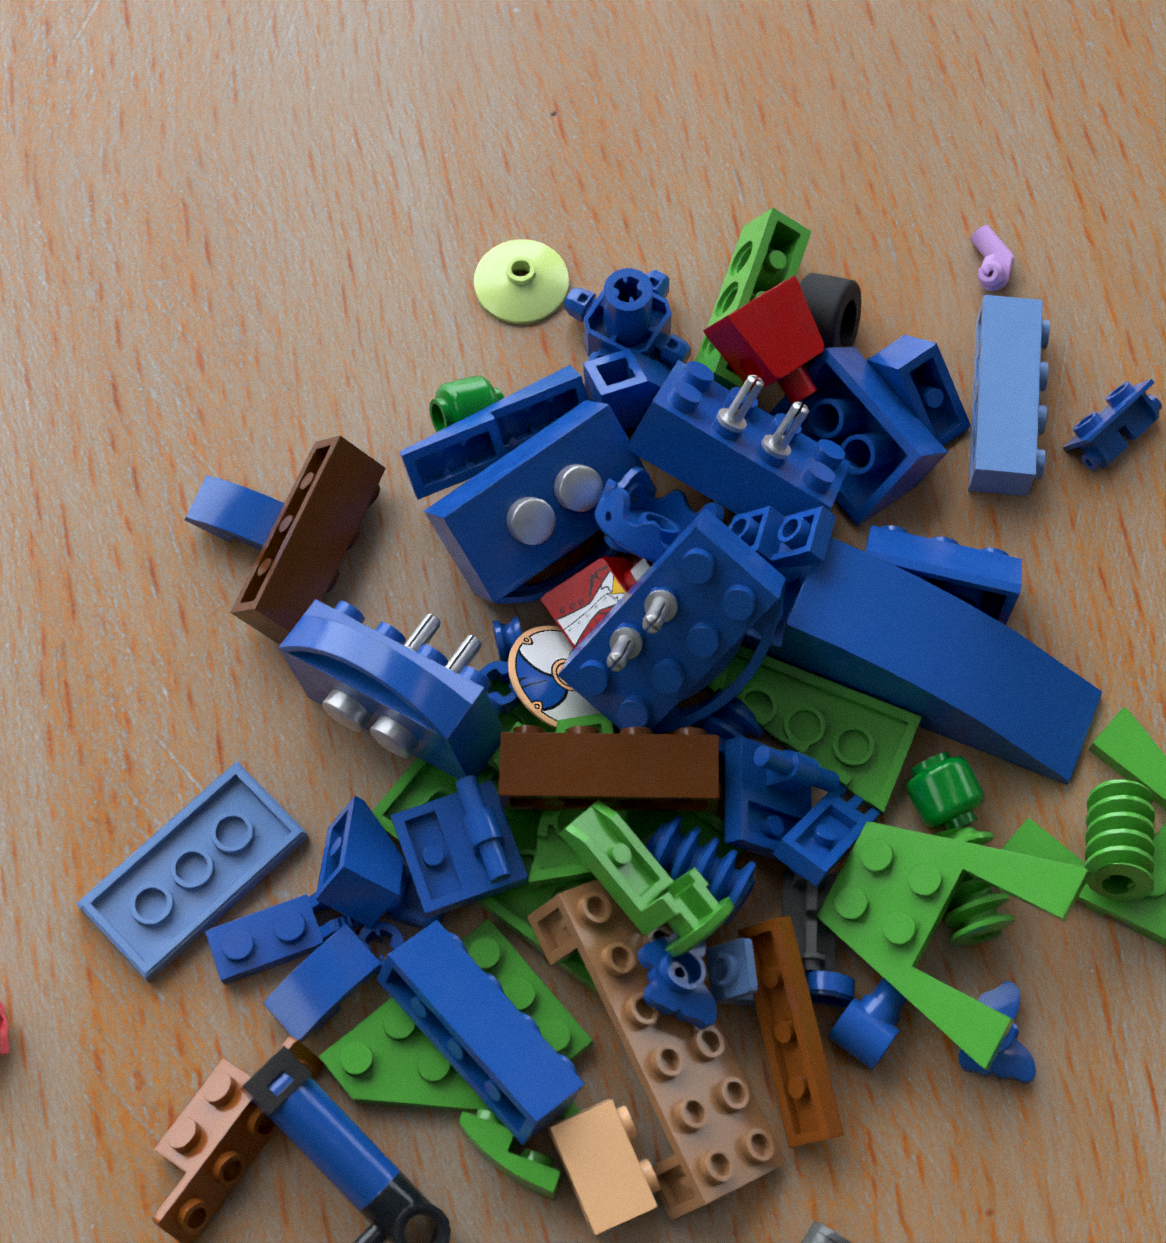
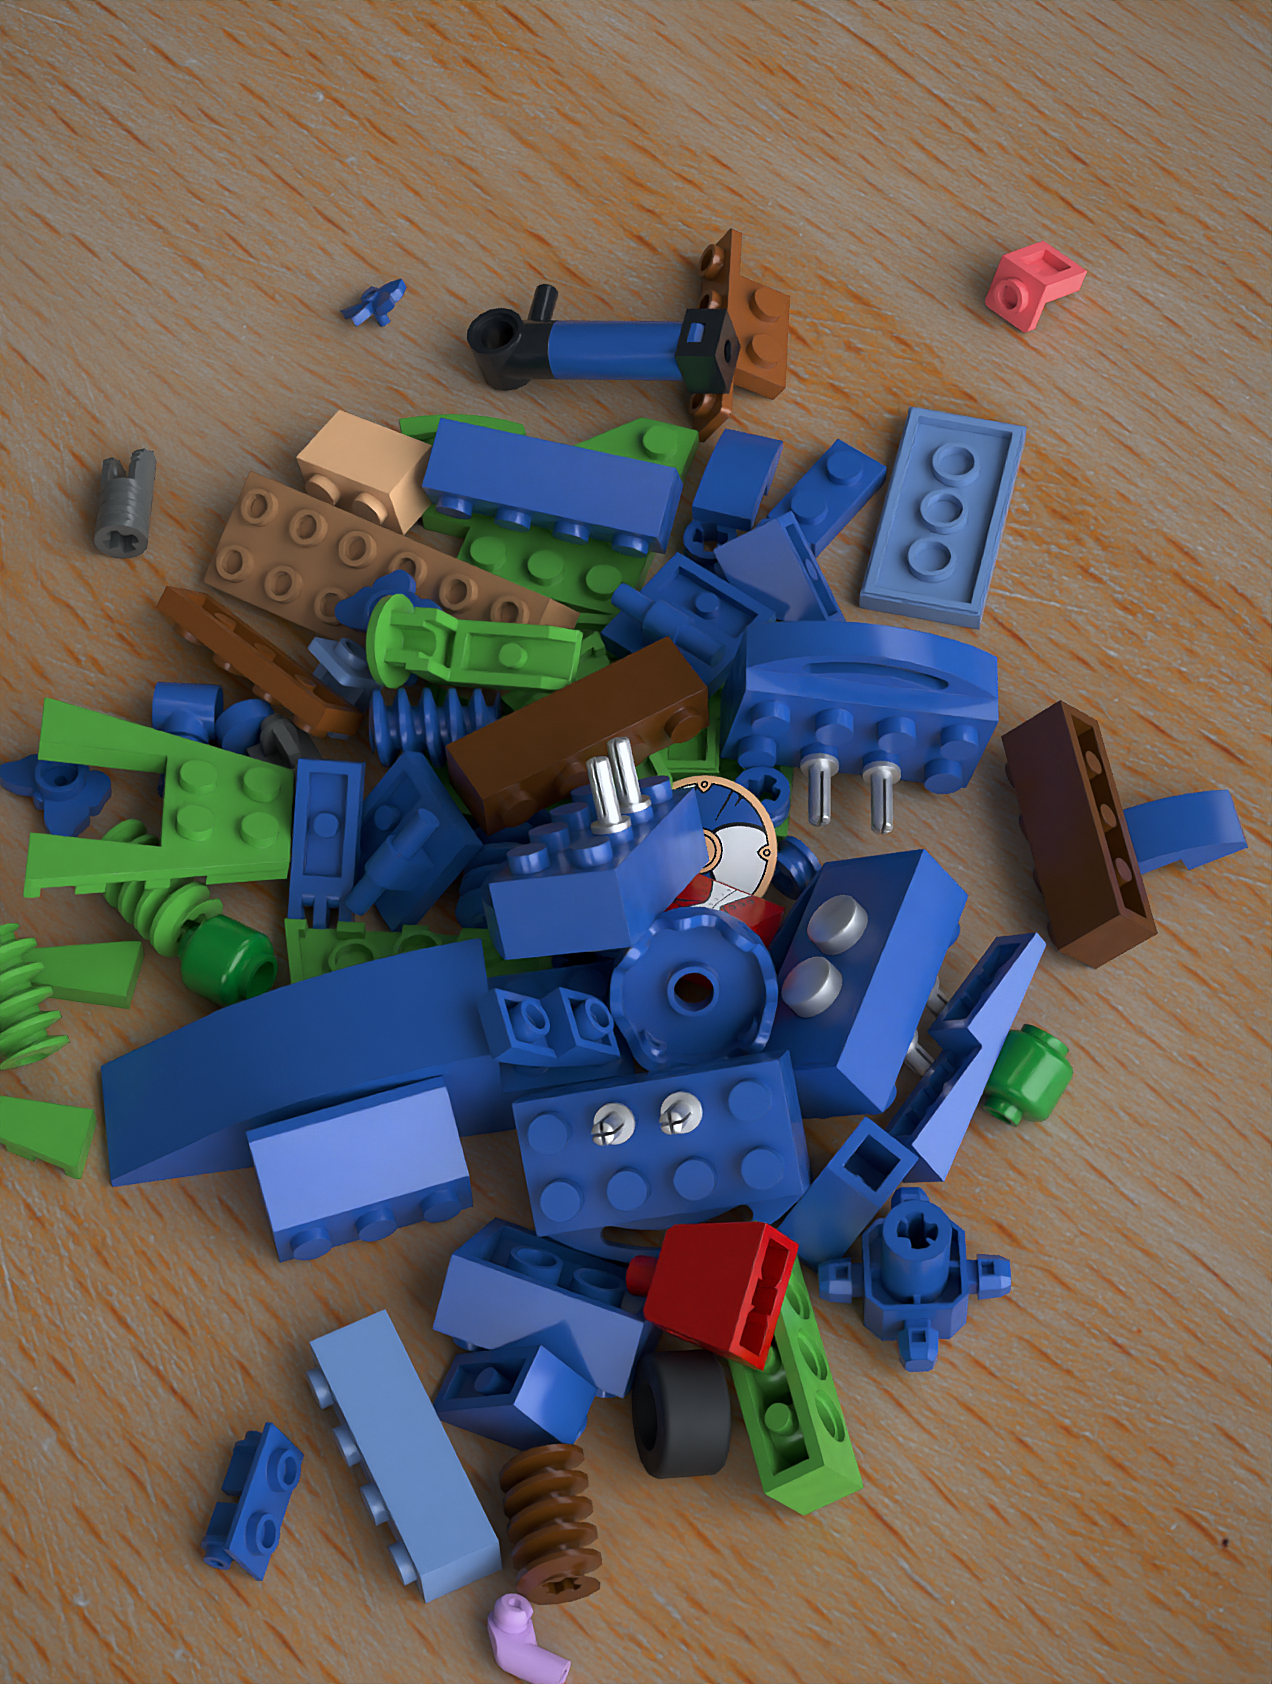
camera: 150 degrees right, 10 degrees down
(526, 297) = (1085, 1315): yellowish green dish -> none
(942, 301) = (547, 1525): none -> reddish brown piece

